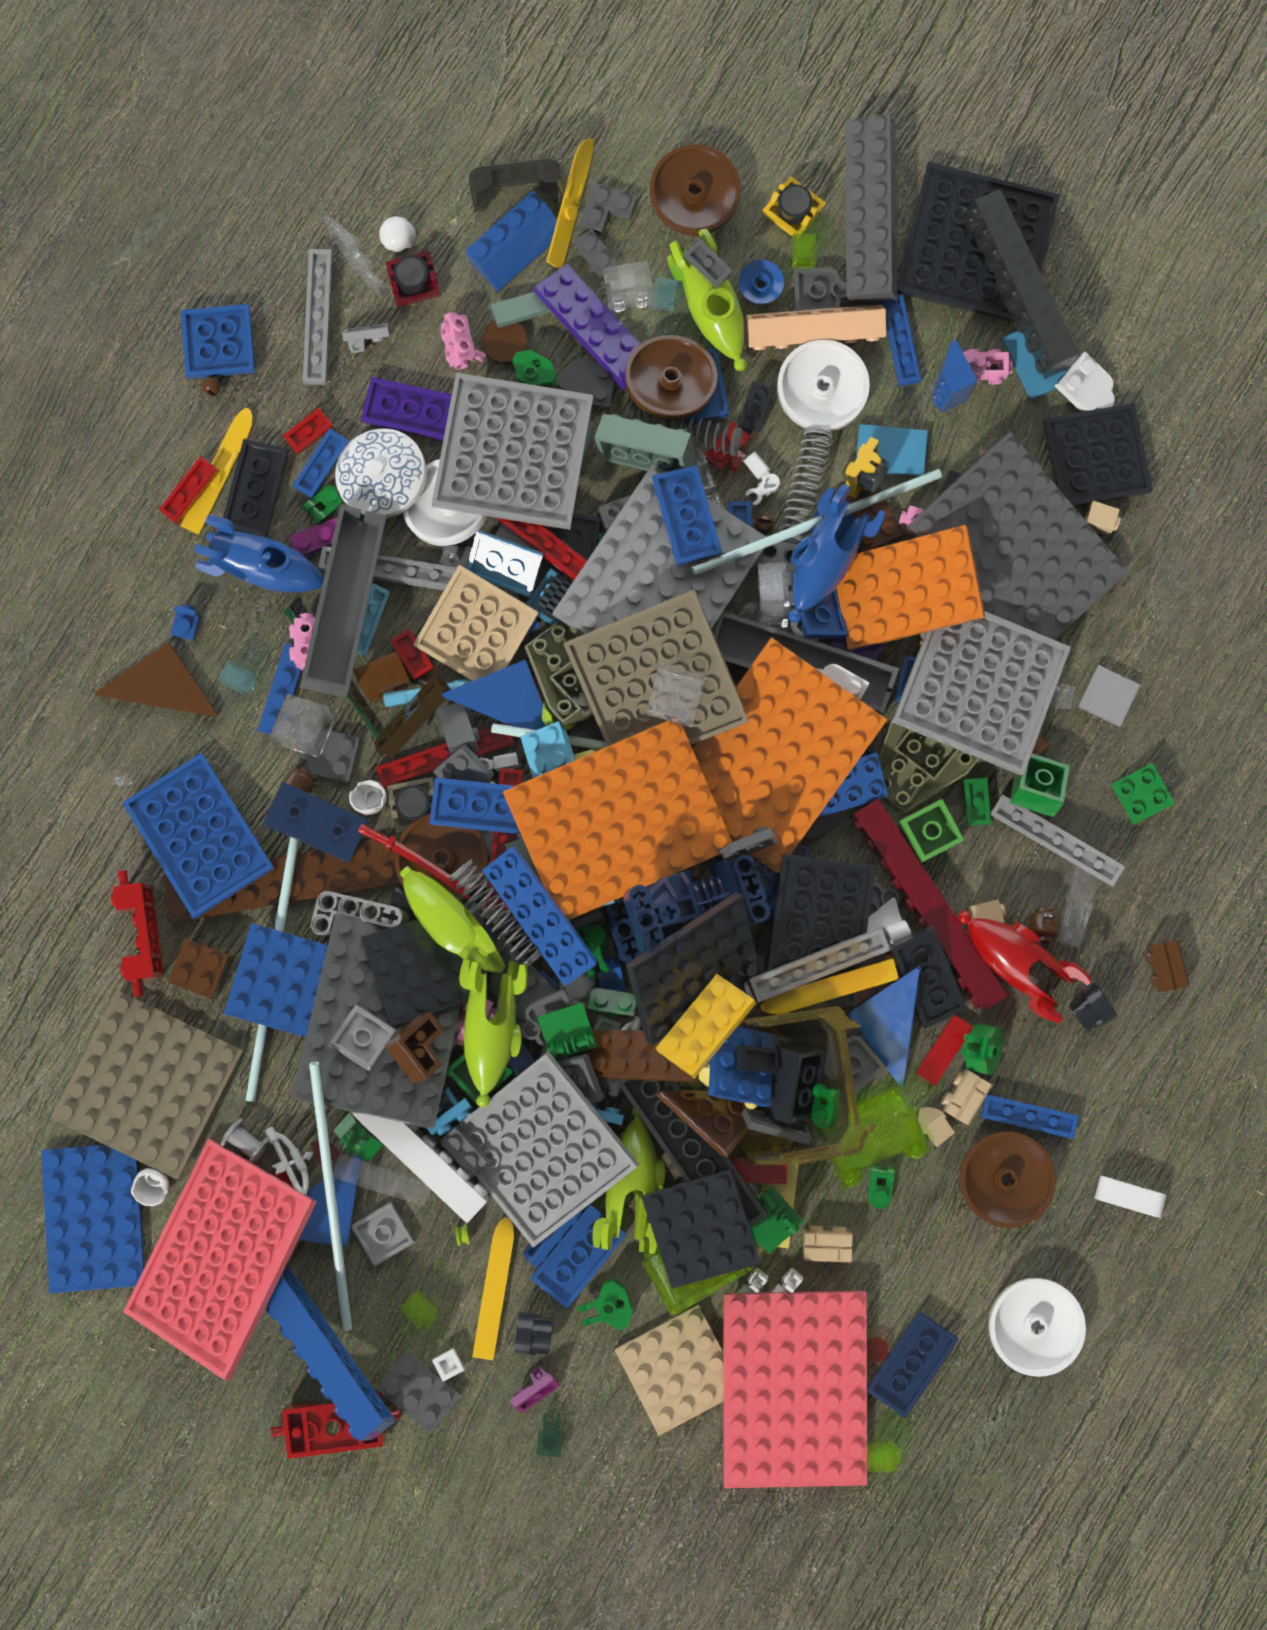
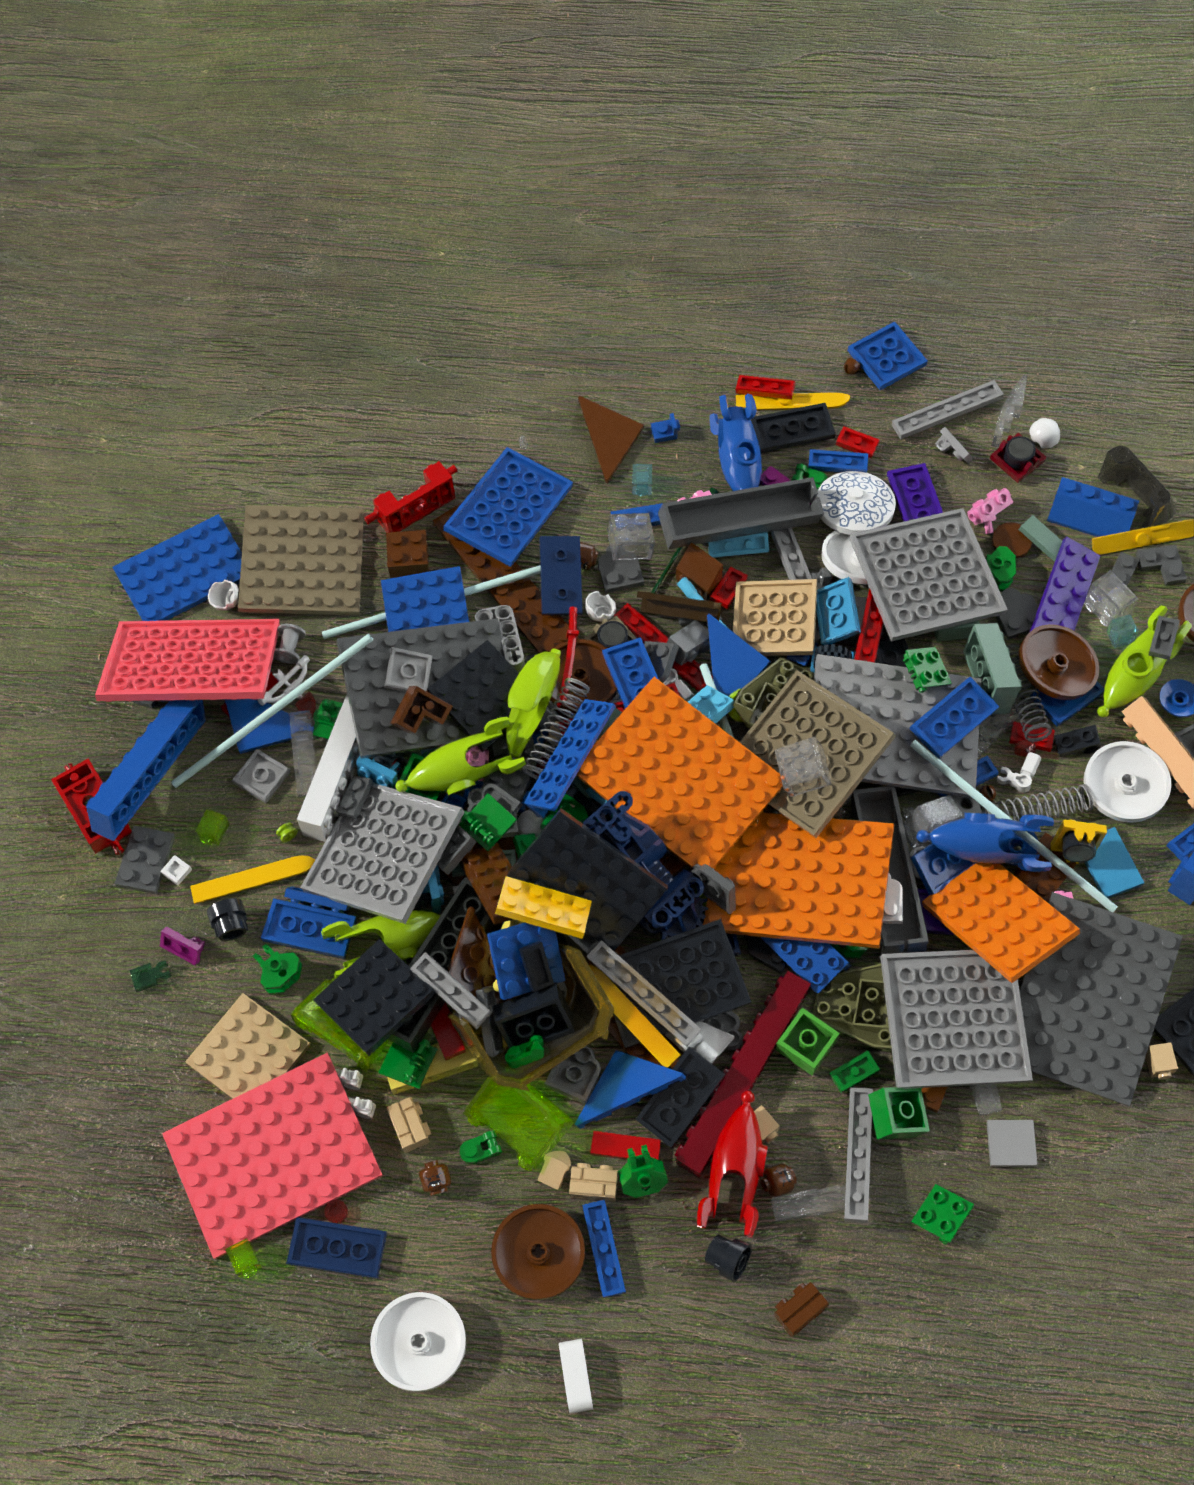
camera: 65 degrees right, 20 degrees down
(623, 512) = (927, 668): none -> green hinge
(736, 1152) = (451, 990): none -> light grey tile
(891, 1243) = (435, 1178): none -> reddish brown head

